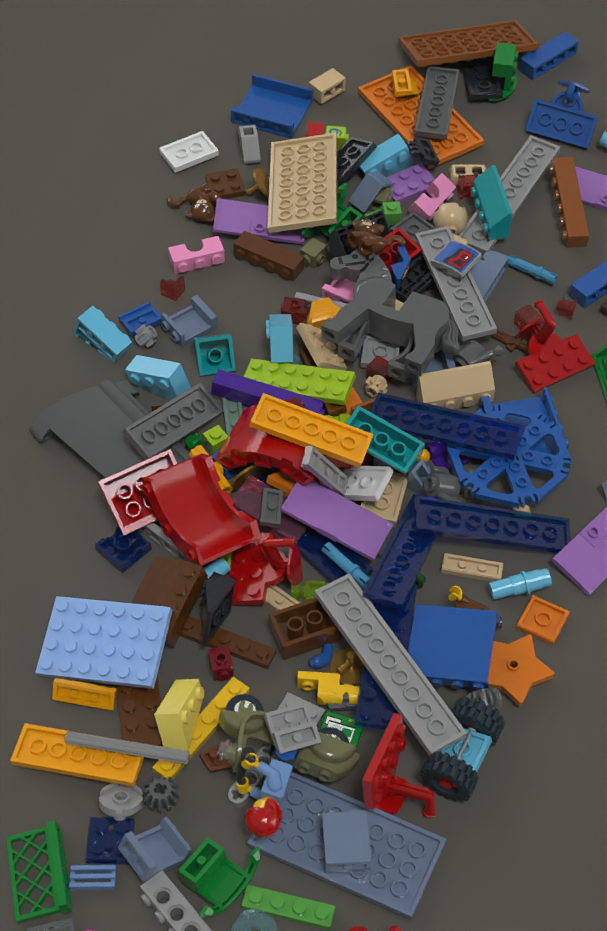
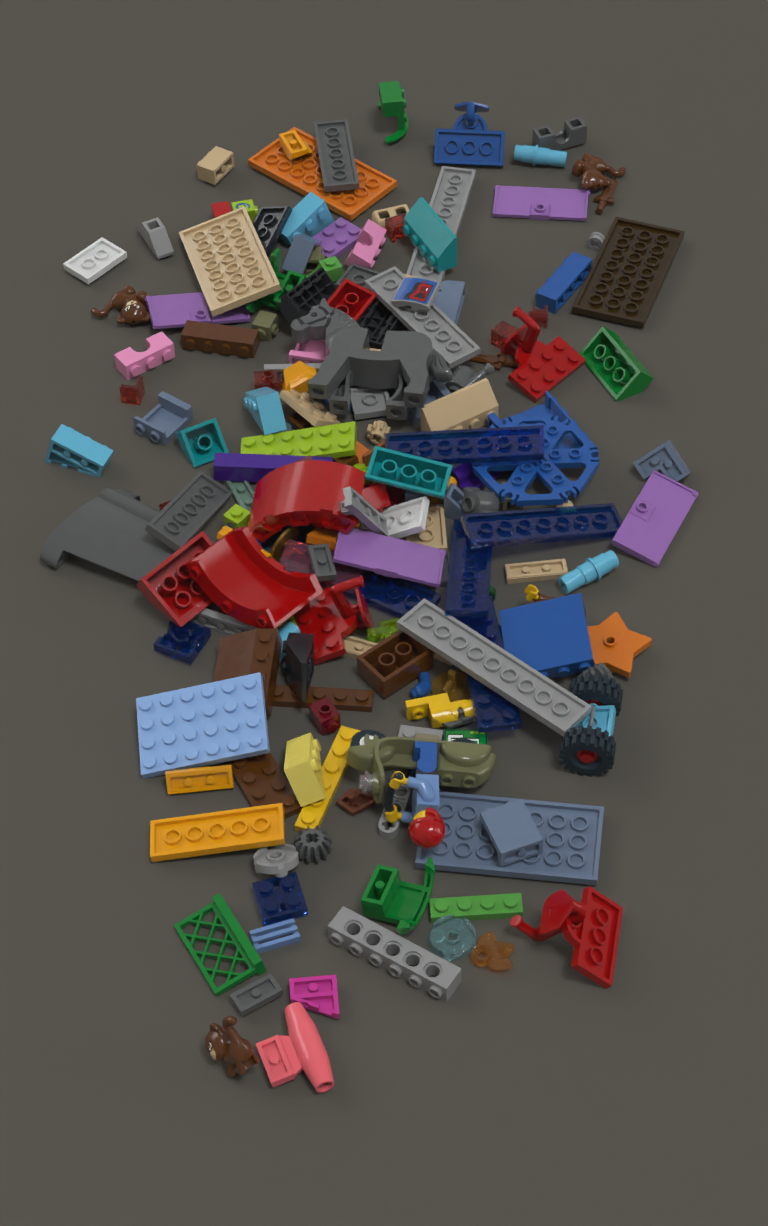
camera: 15 degrees left, 5 degrees down
(127, 747) = (265, 809): light grey axle -> none
(138, 316) = (111, 429): blue plate -> none
(145, 336) = (124, 442): light grey gear -> none
(155, 849) = (329, 891): sand blue panel -> none
(158, 376) = (154, 476): medium azure wedge -> none
(193, 441) = (214, 527): green plate -> none
(226, 183) = (147, 280): reddish brown plate -> none
(262, 183) = (185, 271): pearl gold shield -> none
(273, 106) = (166, 195): blue panel -> none
(292, 728) = (425, 742): light grey slope -> none
(311, 429) = (333, 475): light orange plate -> none
(346, 565) = (411, 595): dark azure pin -> none
(366, 237) = (319, 292): reddish brown animal -> none
(378, 366) = (375, 412): clear red panel -> none
(380, 784) = (534, 781): red plate -> none
(399, 270) = (363, 310): blue slope -> none
(424, 150) = (340, 202): black hinge -> none
(451, 215) = (391, 256): tan cylinder -> none
(465, 43) = (342, 93): dark orange plate -> none
(480, 79) = (370, 123): black tile -> none
(537, 272) = (492, 290): dark azure pin -> none
(542, 620) = (621, 597): orange tile -> none
(548, 55) = (431, 87): blue brick -> none
(569, 202) = (505, 218): dark orange brick -> none

